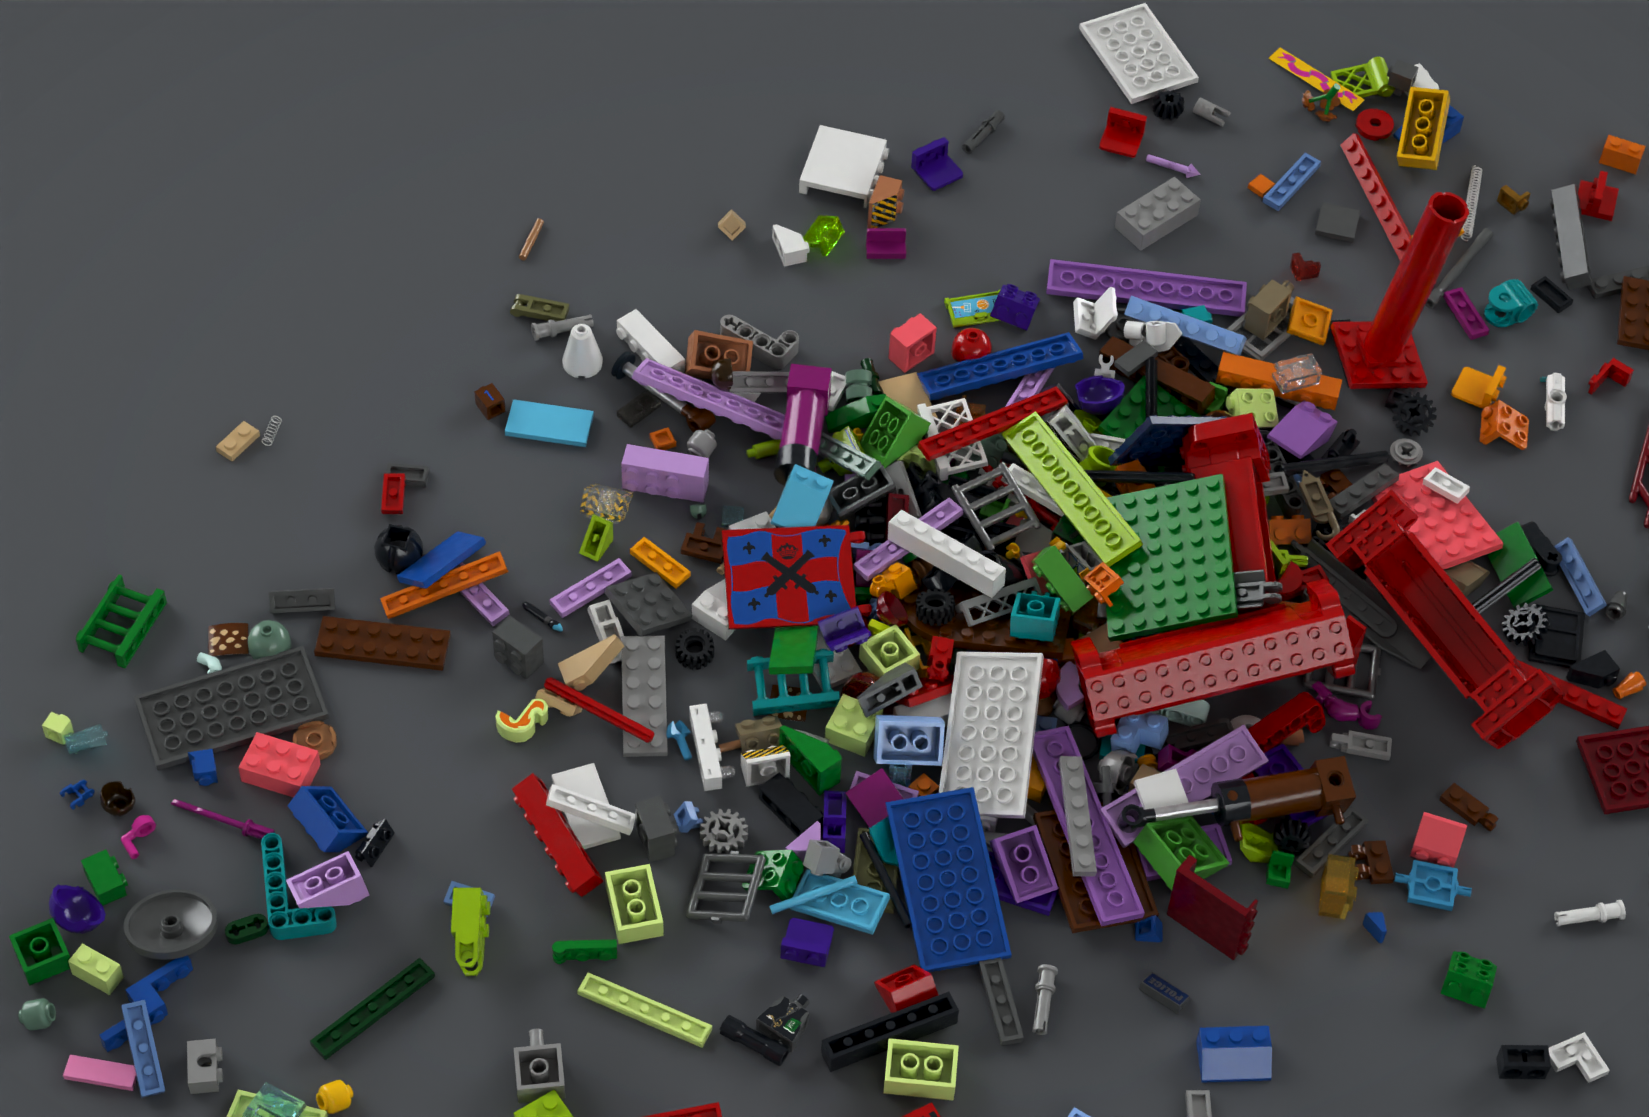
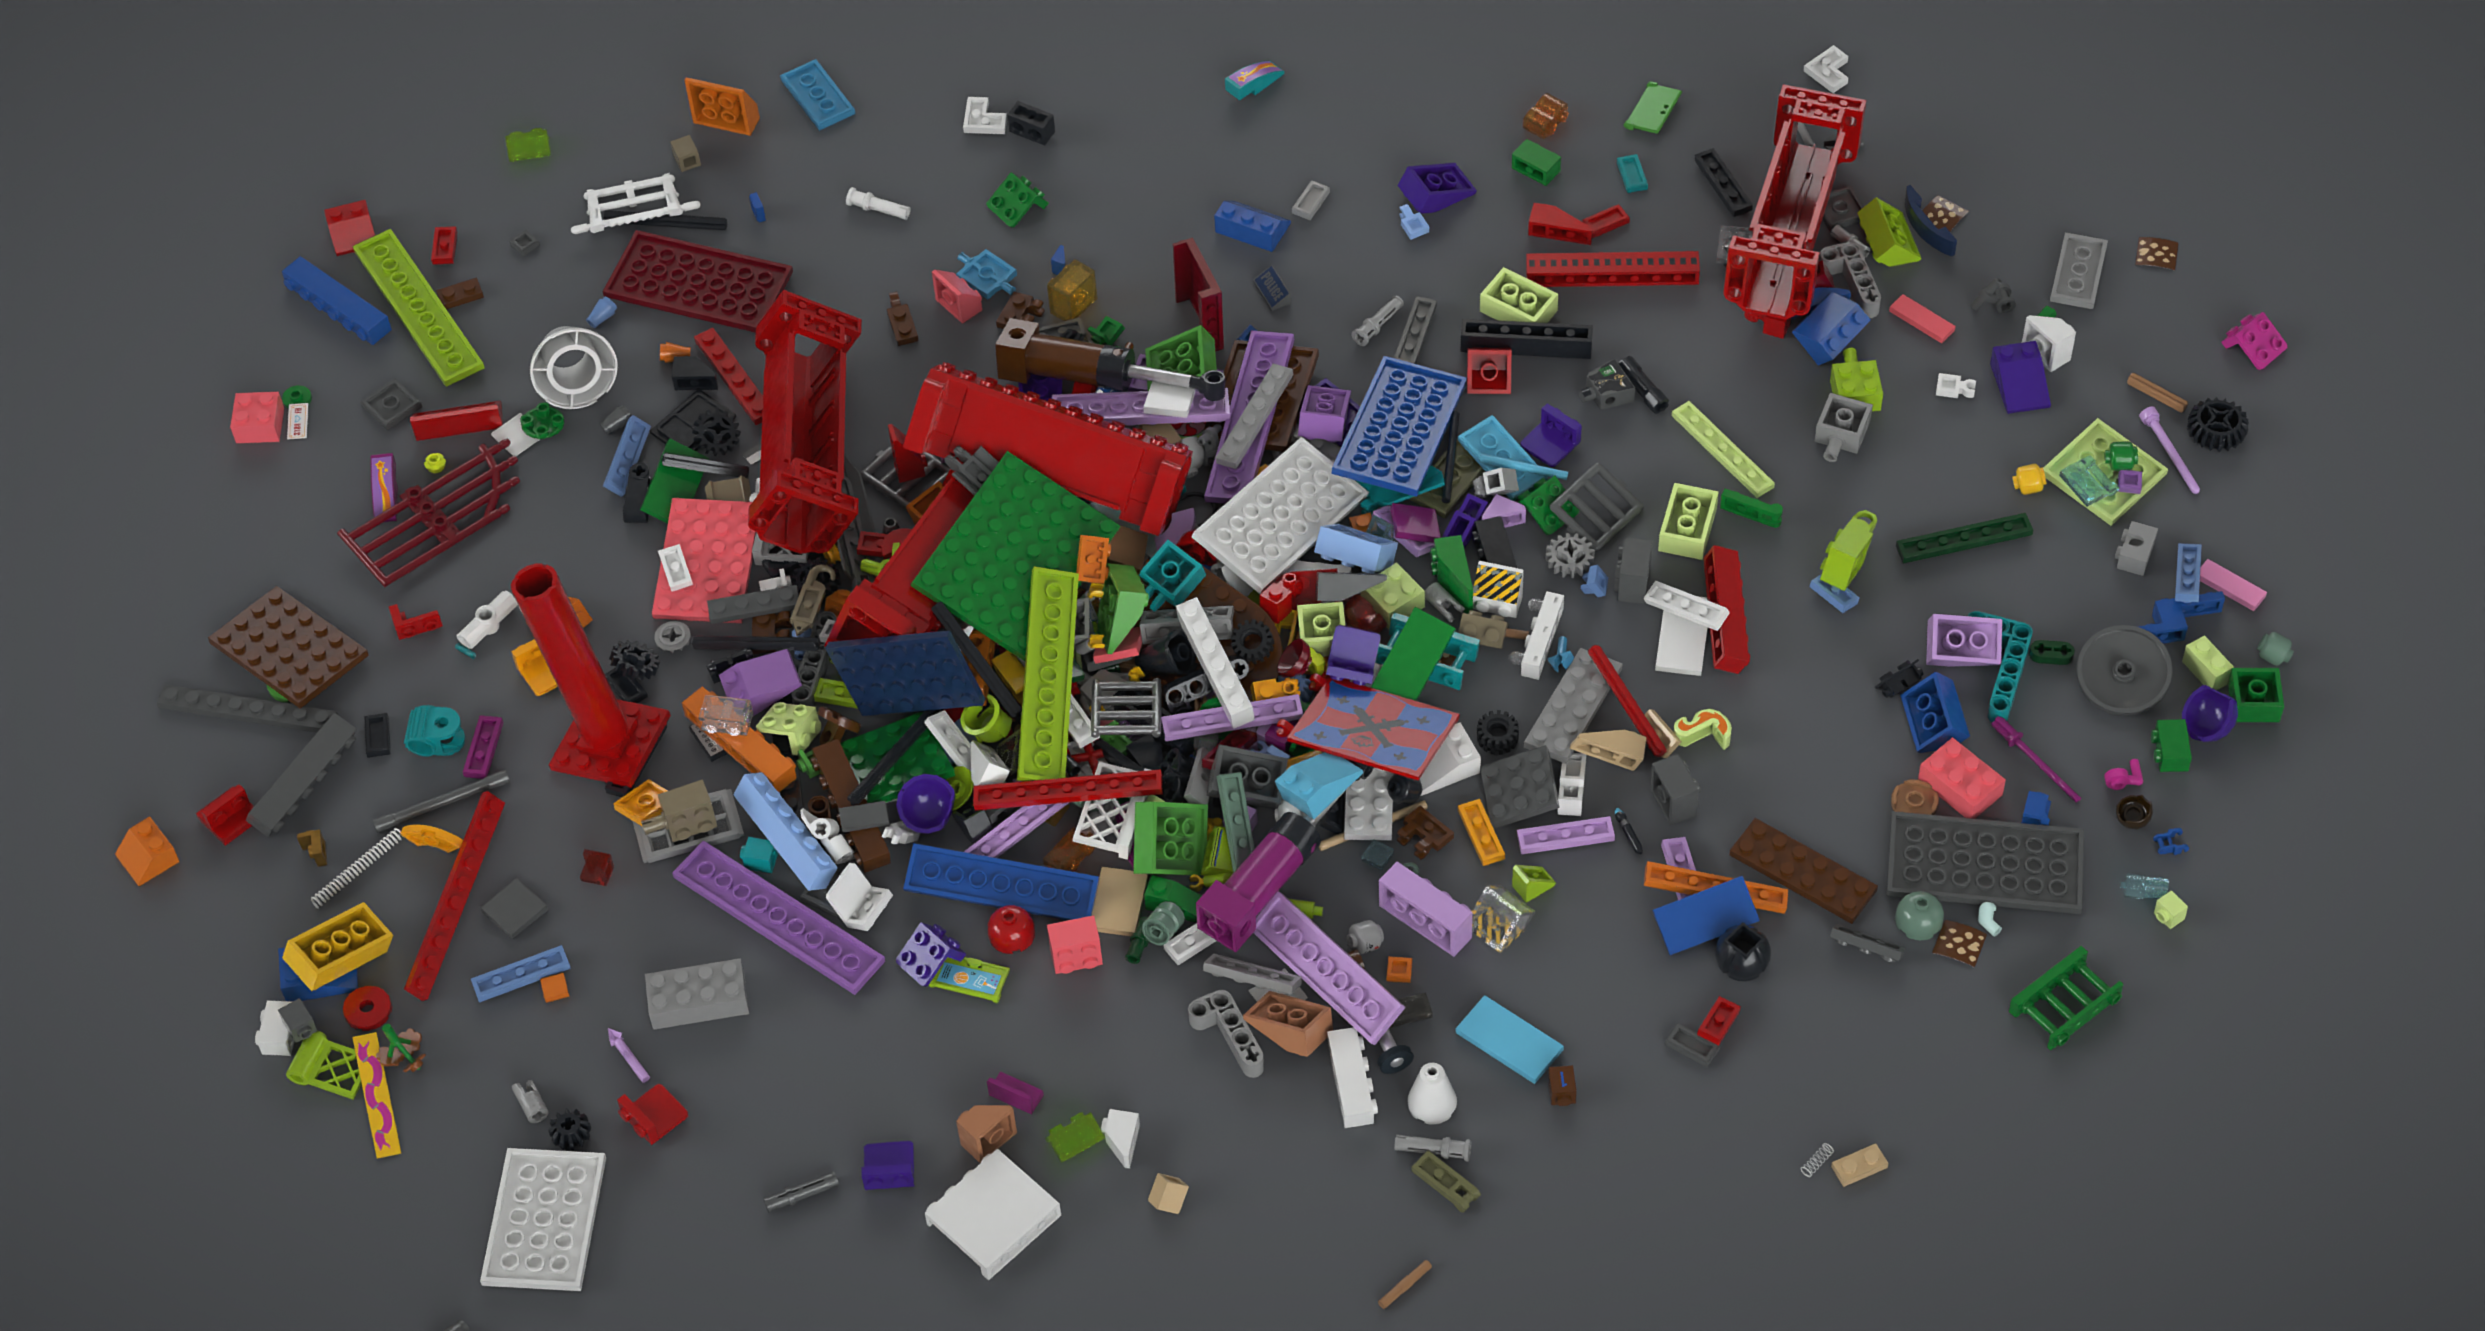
camera: 145 degrees left, 0 degrees up
(722, 374) = (1302, 980): dark brown hair -> none

